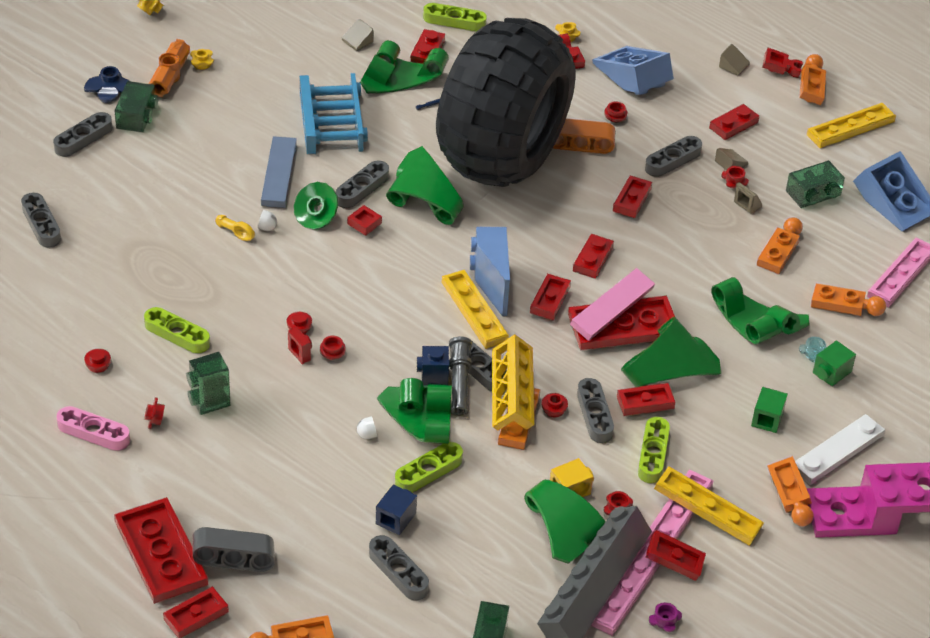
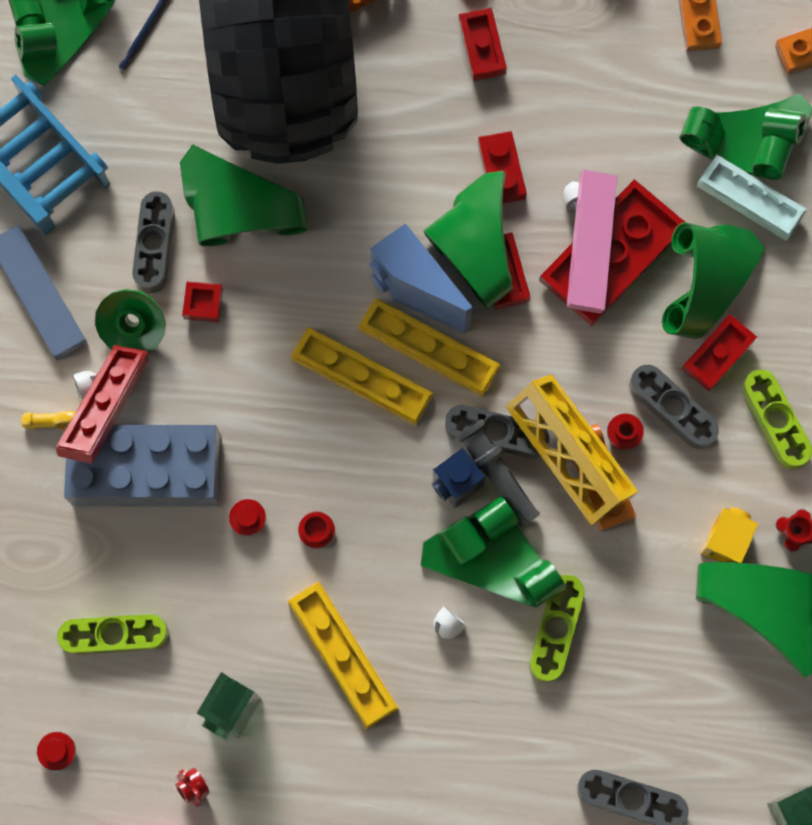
camera: 30 degrees left, 30 degrees up
(264, 266) = (149, 468): none -> sand blue brick
(267, 222) = (102, 404): none -> red tile
(294, 411) = (343, 655): none -> yellow tile
(299, 345) = (279, 556): red plate -> none
(396, 509) = (577, 726): dark blue brick -> none
(424, 300) = (362, 376): none -> yellow tile
(539, 267) = (474, 238): none -> green panel
(733, 343) = (751, 197): none -> light aqua plate

